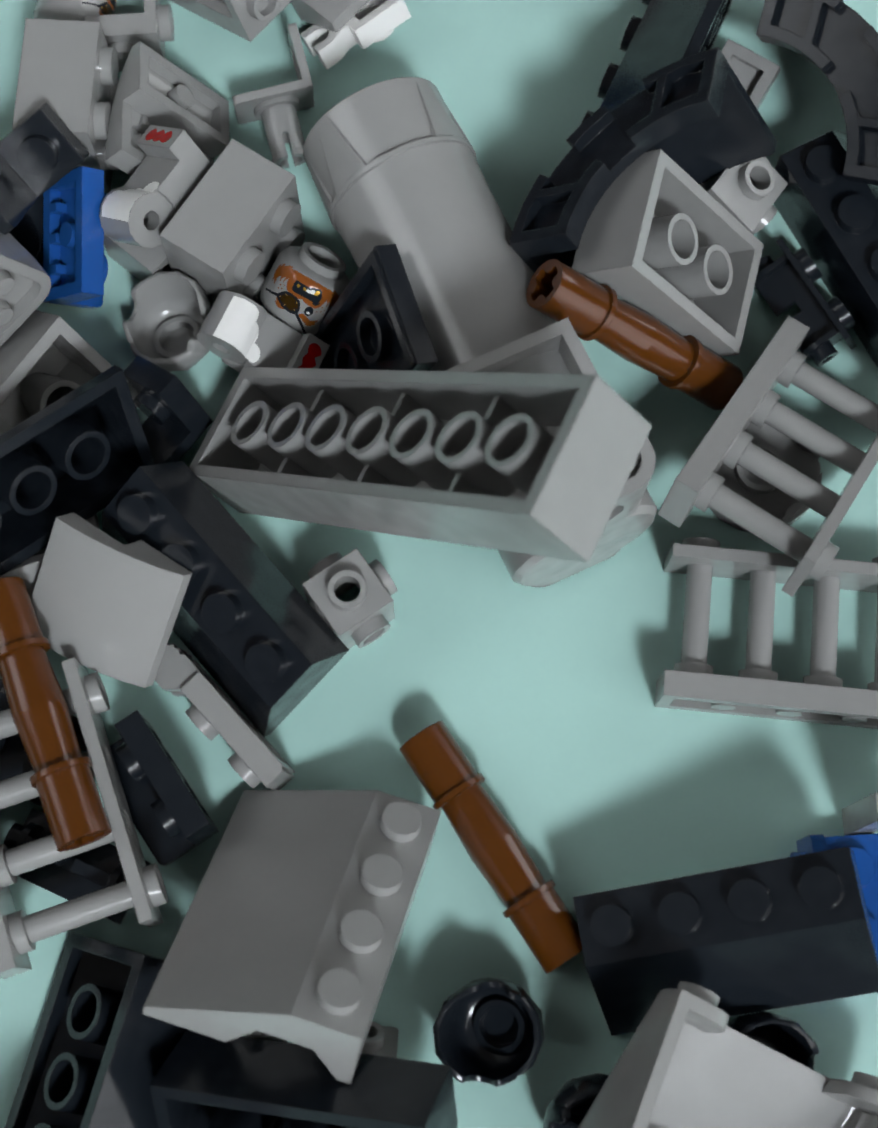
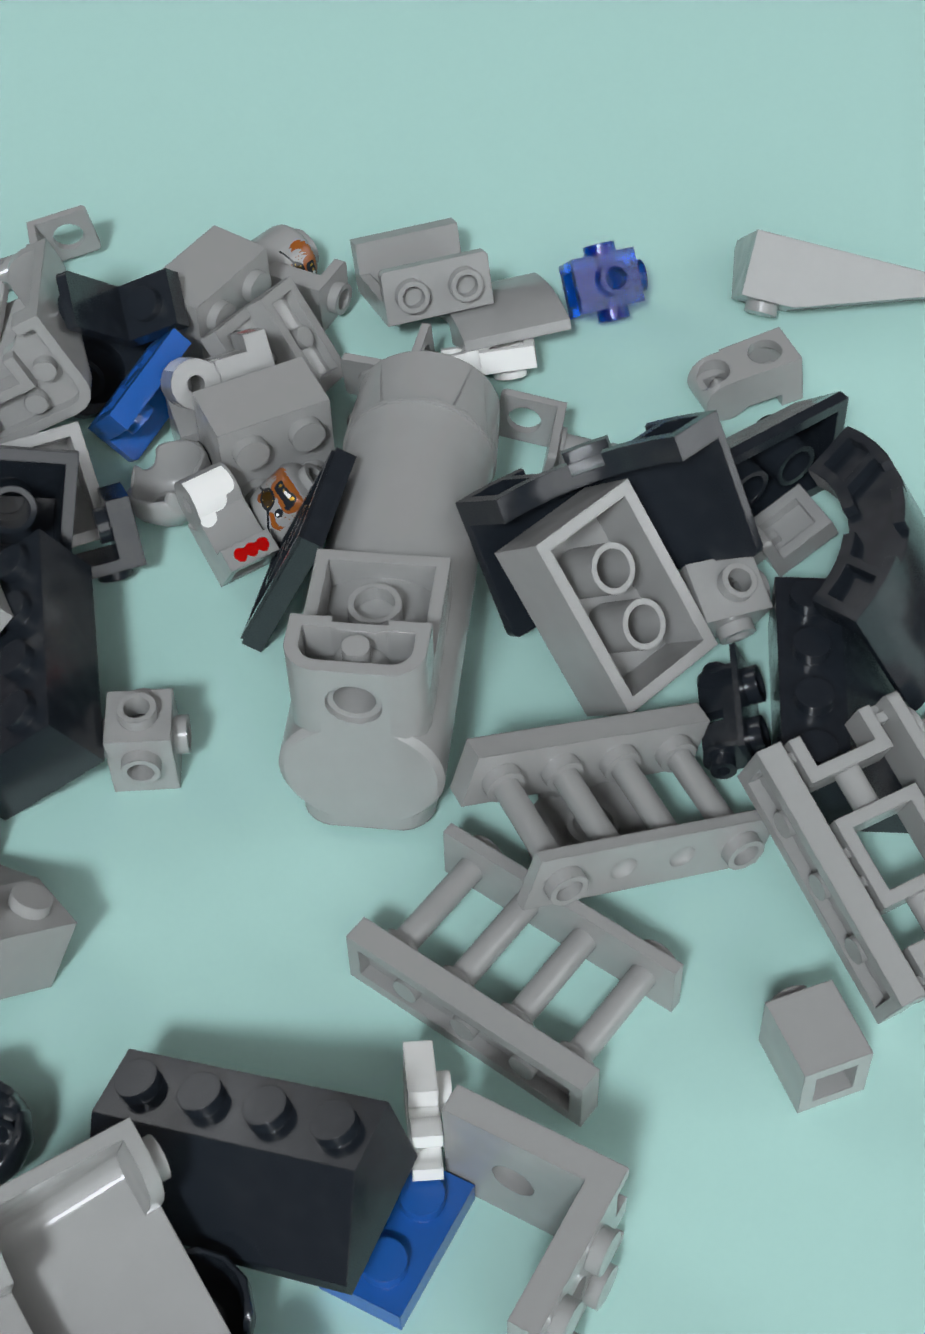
camera: 35 degrees right, 25 degrees down
(428, 454) = (244, 575): light grey brick -> none
(486, 97) = (547, 433): none -> light grey bracket
(493, 846) = (108, 984): reddish brown piece -> none
(633, 334) = (522, 626): reddish brown piece -> none
(810, 796) = (424, 1098): none -> white plate

